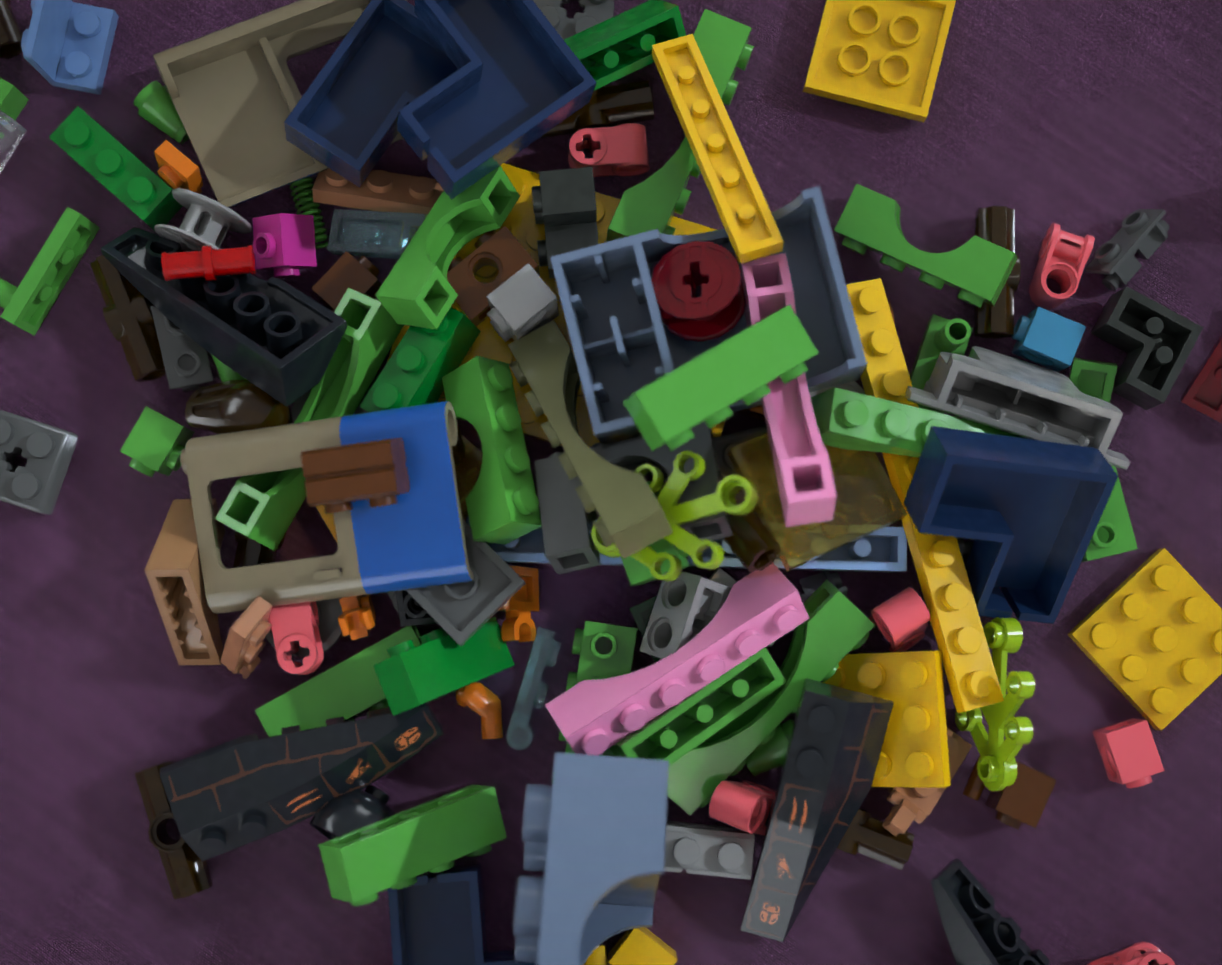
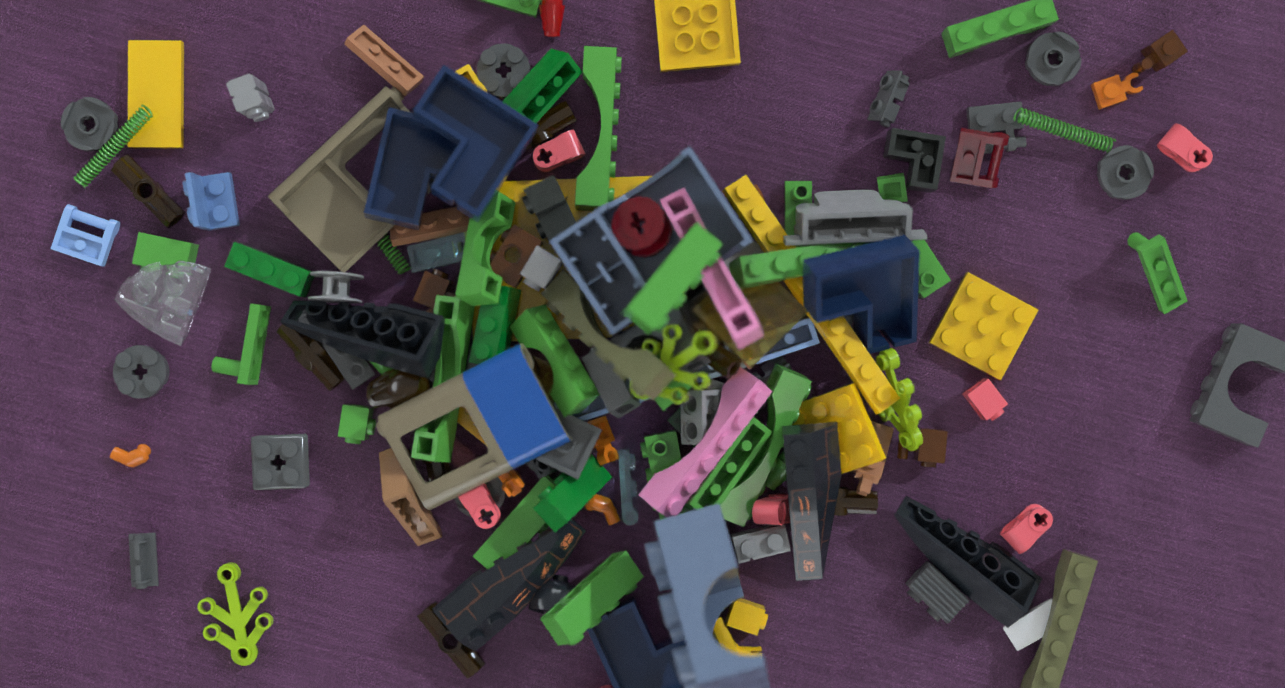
camera: 15 degrees left, 5 degrees up
(159, 110) = (280, 224): bright green cone -> none
(177, 169) = (308, 259): orange plate -> none
(208, 263) = (349, 310): red pin -> none
(246, 638) = (454, 518): nougat hinge -> none
(284, 243) = (386, 279): dark pink brick -> none
(355, 473) = (484, 405): reddish brown brick -> none
(717, 149) = (621, 135): yellow plate -> none
(902, 619) = (826, 372): coral piece -> none
(974, 269) = (732, 140): bright green arch -> none
(998, 226) = (813, 142): dark brown piece -> none
(1047, 339) = (857, 172): dark azure brick -> none
(1061, 259) = (850, 119): coral piece -> none

